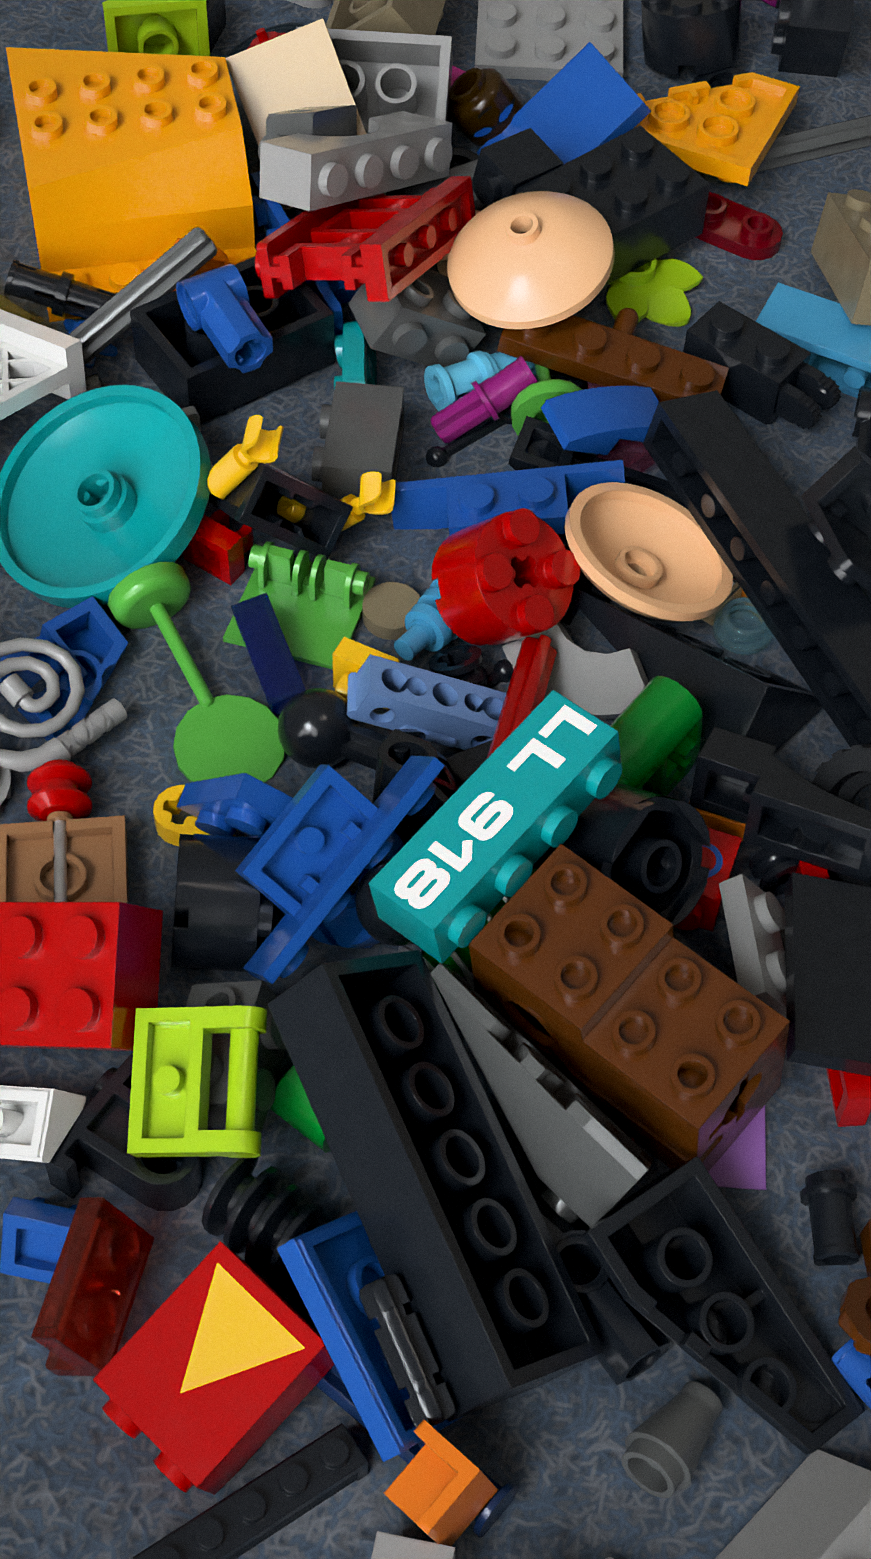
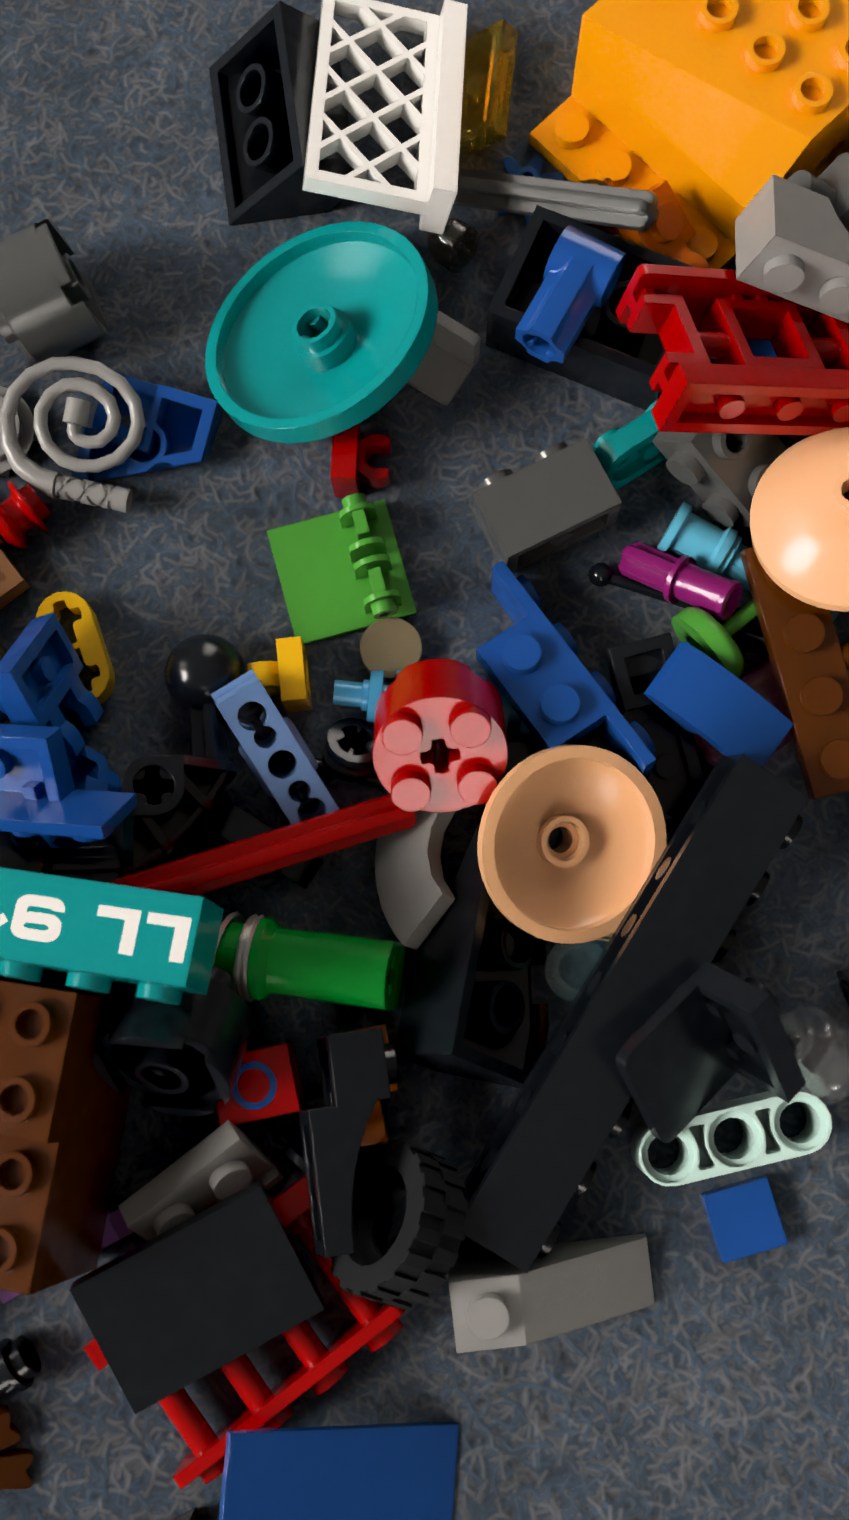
camera: 65 degrees right, 25 degrees up
(55, 291) = (541, 125): black pin -> none
(221, 732) = (170, 596): bright green piece -> none
(268, 651) = (260, 584): clear blue piece -> none
(283, 504) = (415, 486): torso -> none

